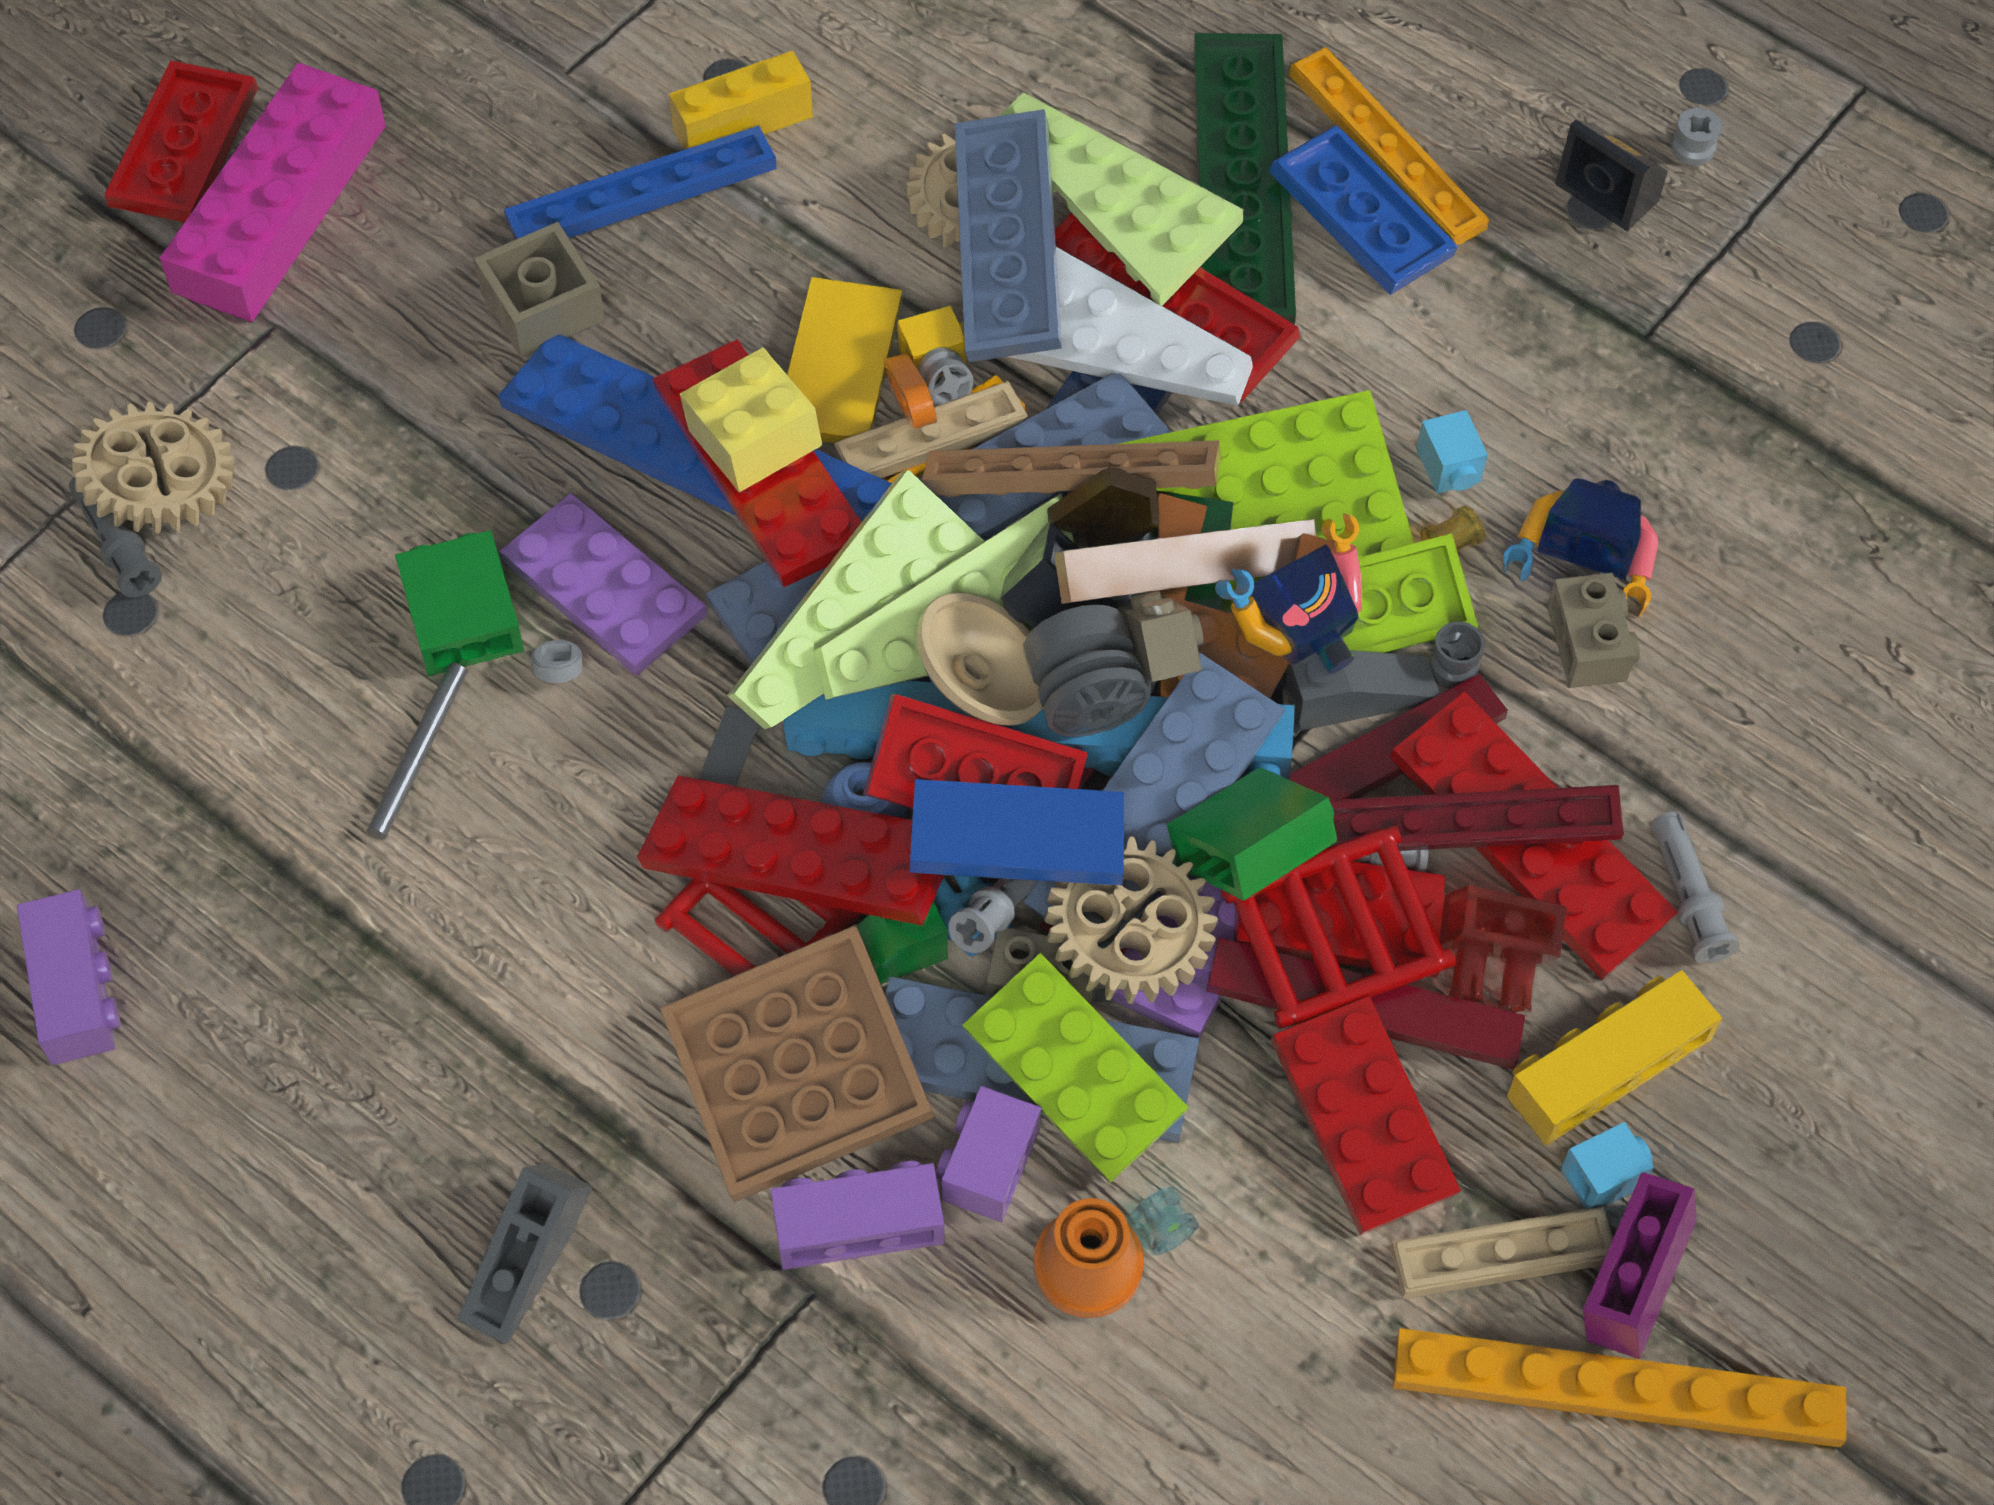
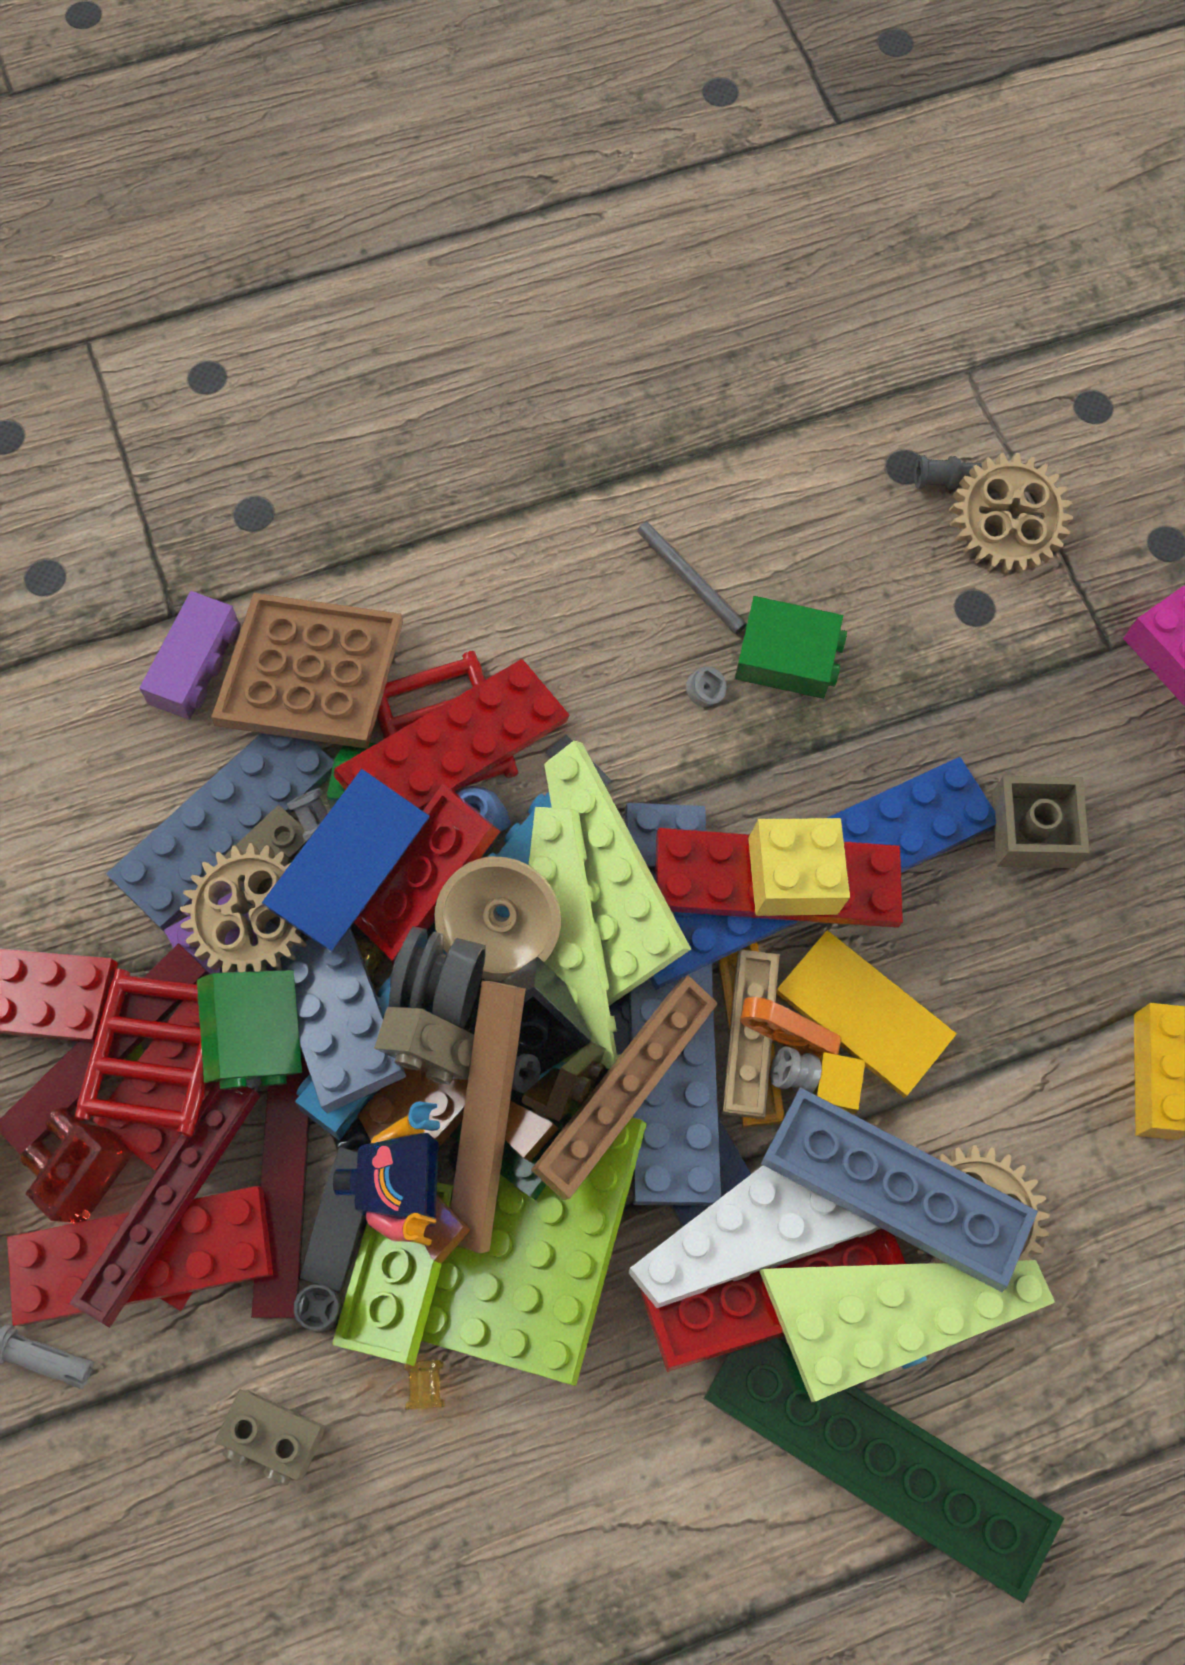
camera: 120 degrees right, 10 degrees up
(68, 976) = (642, 322): medium lavender brick -> none
(524, 1249) = (303, 475): dark grey slope -> none
(603, 584) = (757, 749): medium lavender plate -> none
(646, 186) = (1113, 957): blue plate -> none
(989, 1153) = (174, 751): medium lavender brick -> none
(1075, 1068) = (183, 825): lime plate -> none
(1083, 1279) = (71, 778): orange piece -> none
(1164, 1220) = (56, 827): clear light blue wheel -> none
(1363, 209) = (786, 1541): blue tile -> none
(1388, 144) = (852, 1624): light orange tile -> none
(1451, 452) = (496, 1439): medium azure brick -> none
(1594, 529) = (349, 1502): clear blue torso -> none

